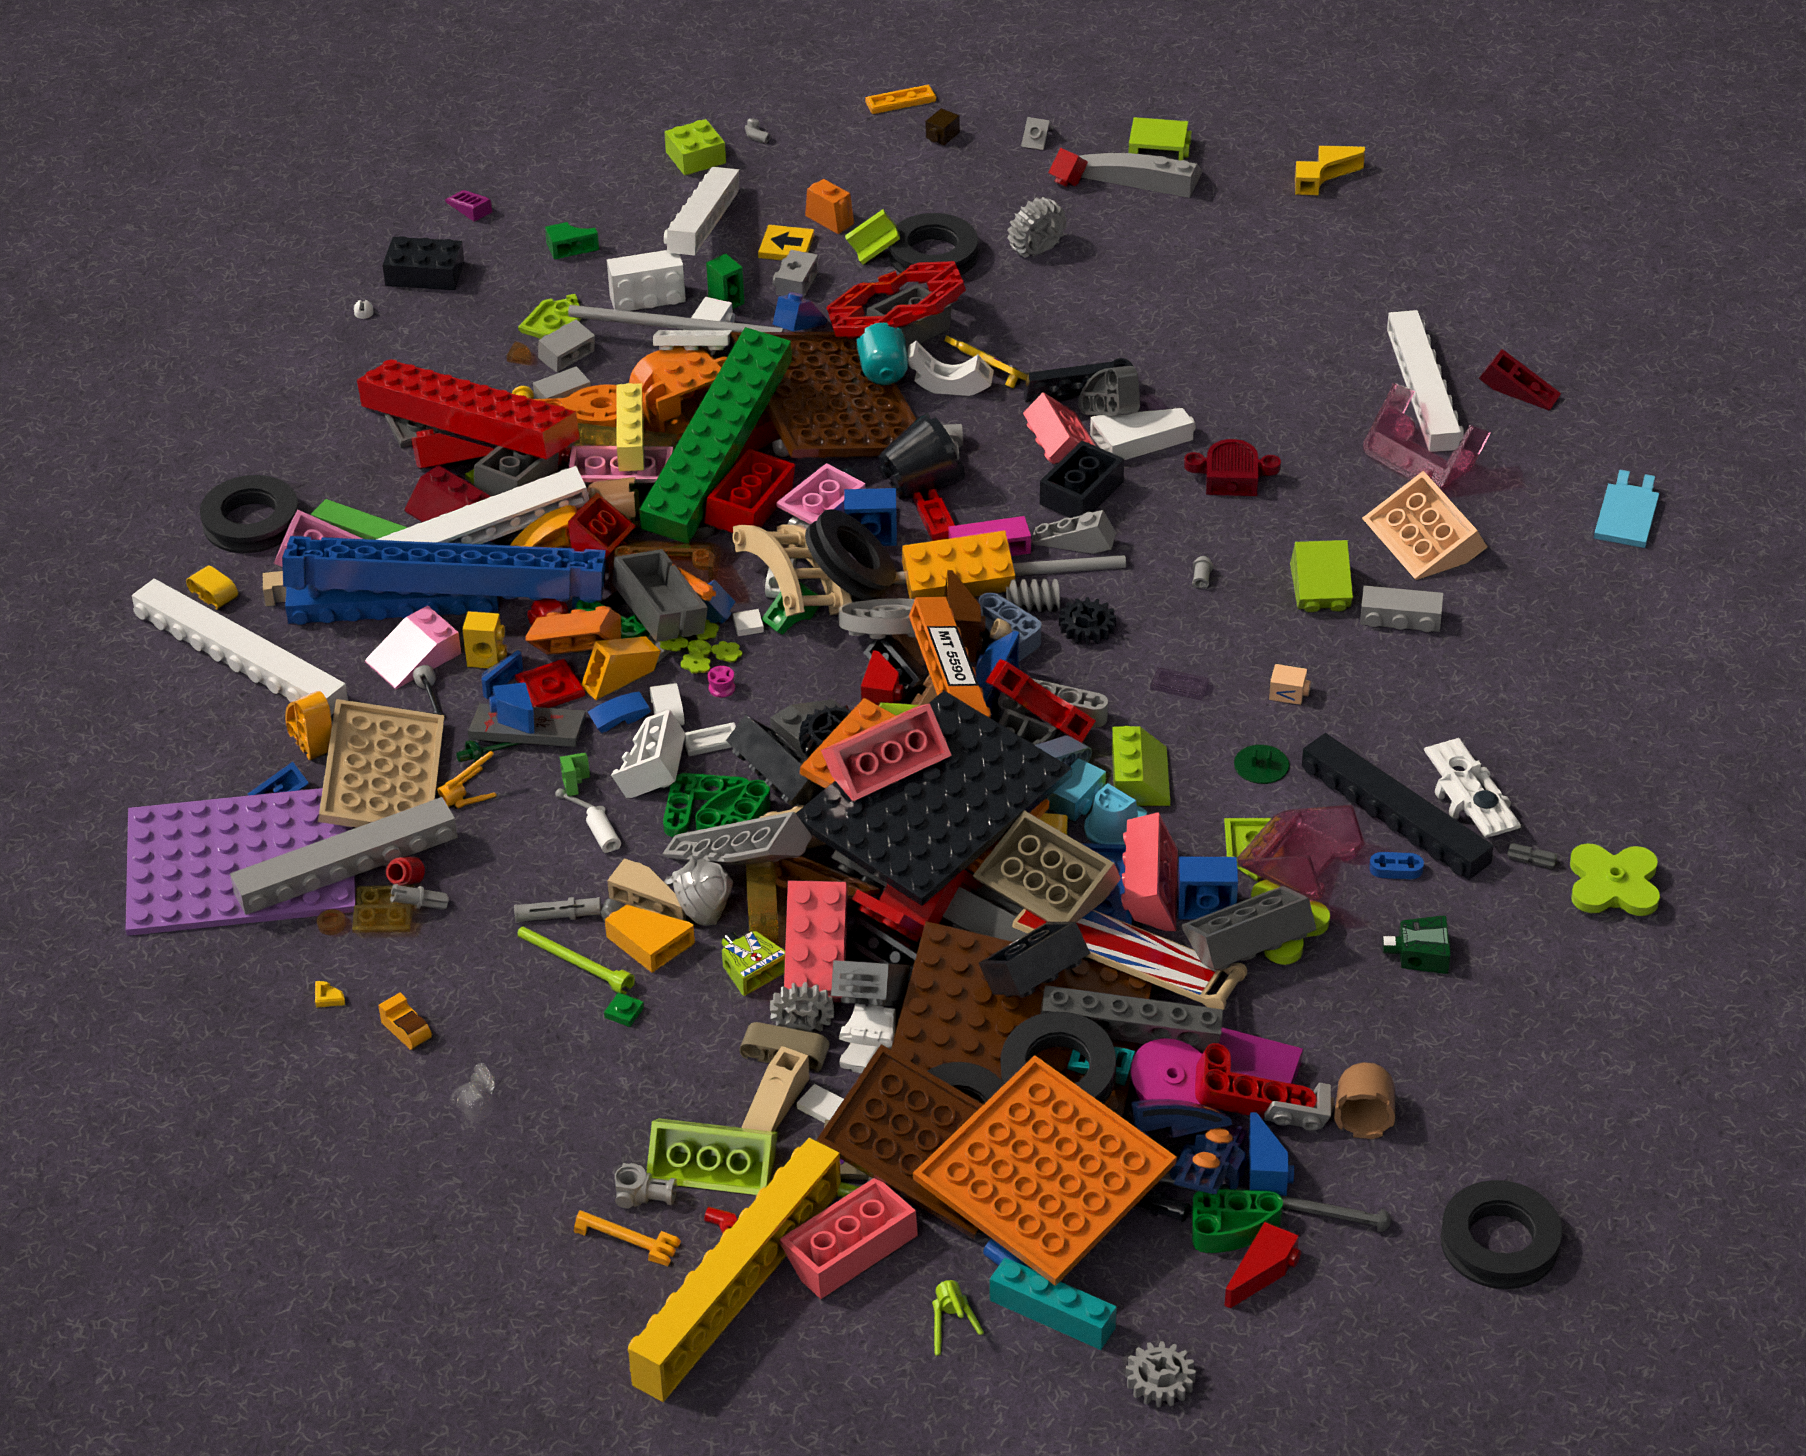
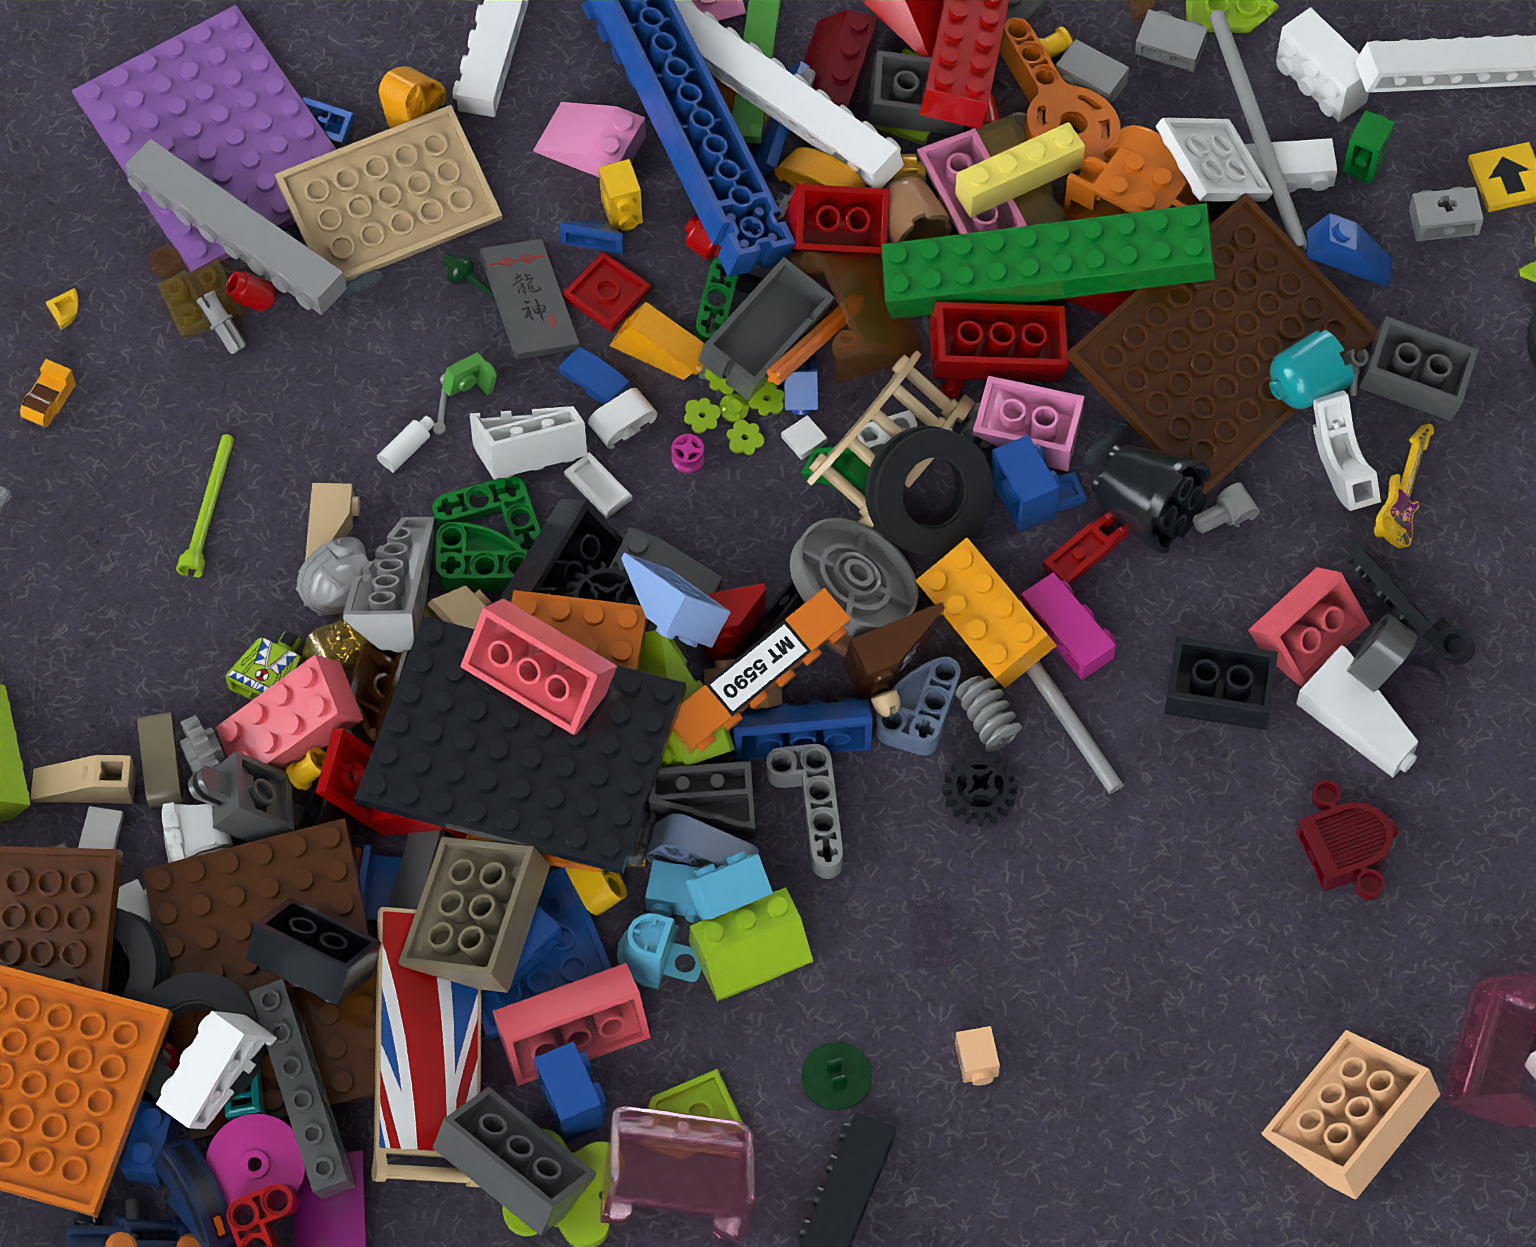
camera: 65 degrees right, 20 degrees up
(426, 683) = (554, 171): light grey hinge -> none
(454, 790) = (396, 279): light orange plant -> none
(513, 706) = (532, 273): blue slope -> none
(558, 909) = (273, 466): light grey pin -> none
(574, 631) = (669, 274): orange slope -> none
(609, 907) = (286, 507): dark grey hinge -> none
(624, 1009) = (156, 584): green plate -> none
(649, 935) = (261, 558): light orange slope -> none
(858, 946) = (307, 769): none -> yellow bush
(875, 682) = (675, 603): none -> light blue slope
(941, 278) = (1479, 319): red plate -> none
(1040, 701) = (782, 830): red arch -> none
(1083, 533) = (1129, 715): light grey slope -> none
(1098, 748) = (728, 886): none -> medium azure brick
(1103, 1036) = (211, 1066): none -> white wedge
(1202, 568) = (1137, 882): light grey pin -> none
(1321, 575) = (1187, 1022): lime slope -> none
(1401, 608) = (1181, 1137): light grey brick -> none

